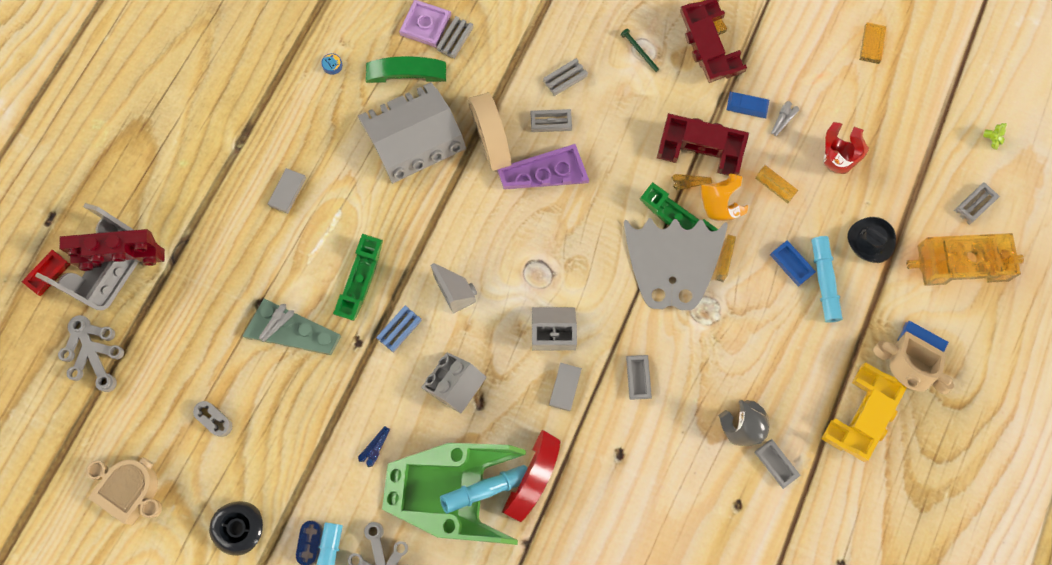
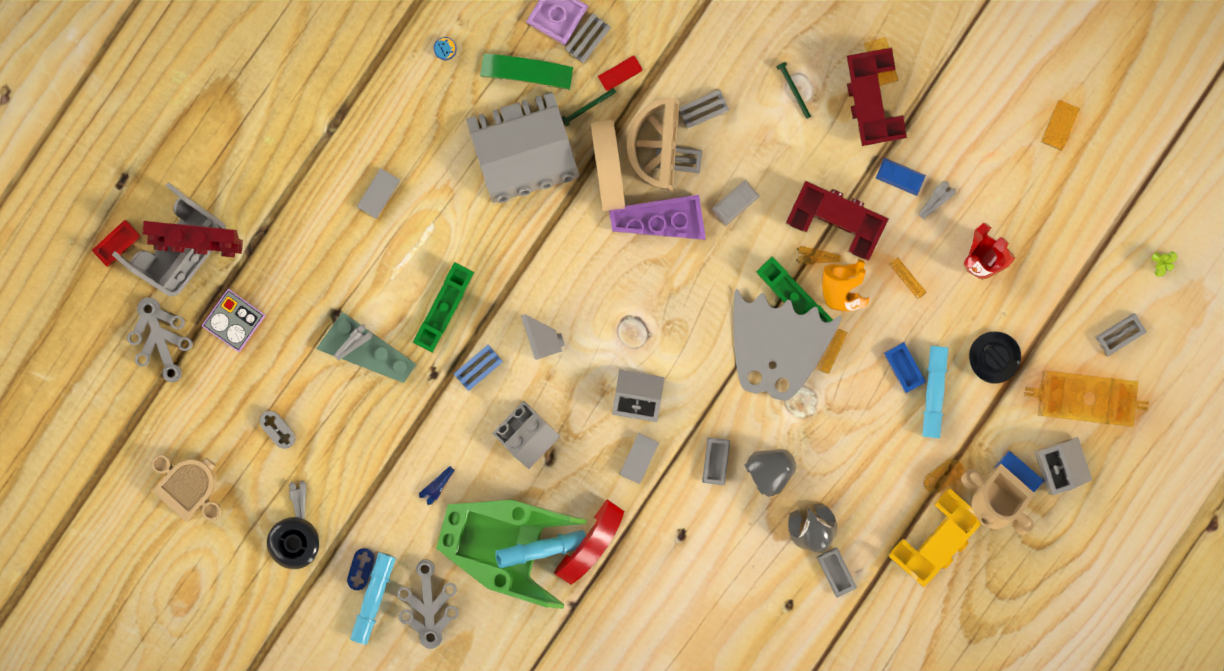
camera: 15 degrees right, 15 degrees up
(162, 324) = (233, 320): none -> tile
(239, 482) = (298, 498): none -> light grey piece
(466, 89) = (566, 120): none -> dark green piece
(488, 61) = (620, 73): none -> red sticker
(516, 86) = (668, 145): none -> tan window
(608, 148) = (735, 202): none -> light grey tile
(695, 372) = (771, 470): none -> dark grey piece
(849, 351) = (946, 480): none -> clear yellow beam
(961, 325) = (1063, 466): none -> light grey slope

